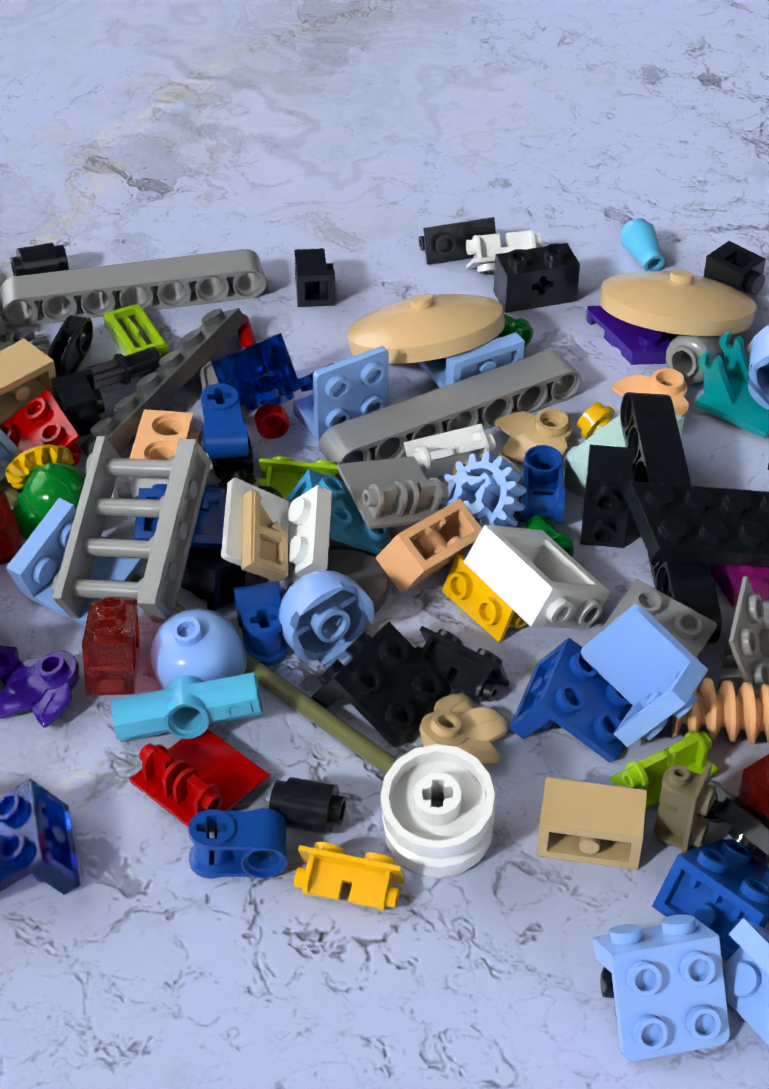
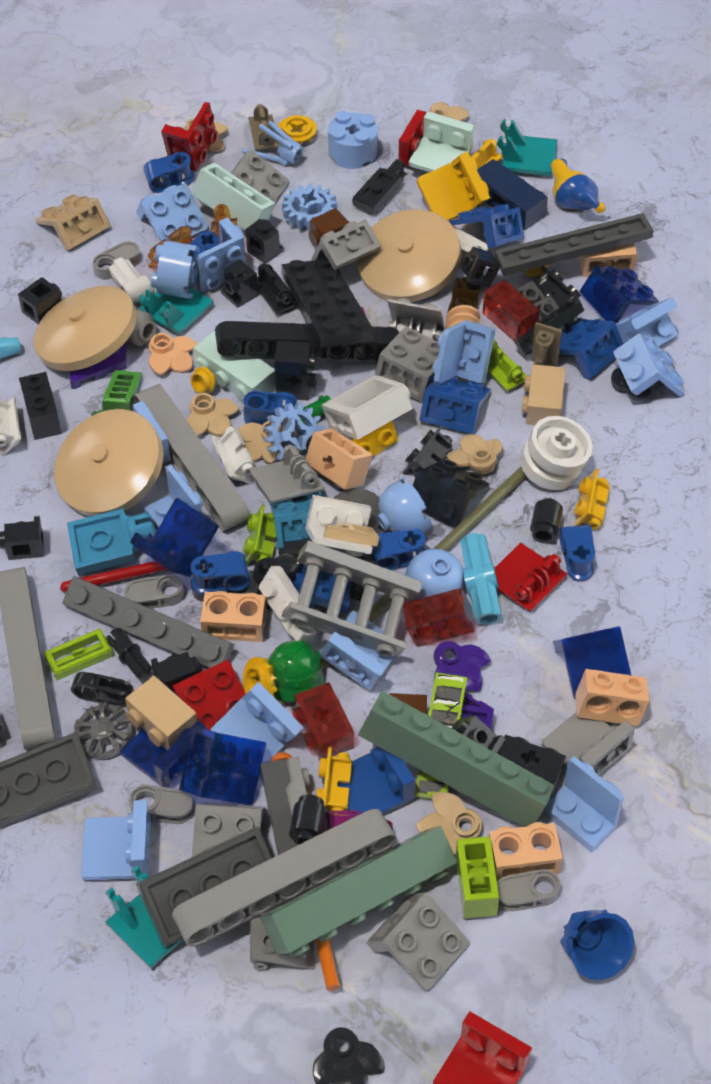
camera: 90 degrees left, 10 degrees up
(310, 337) = (106, 538): none -> dark azure plate
(579, 351) = (112, 398): none -> bright green slope

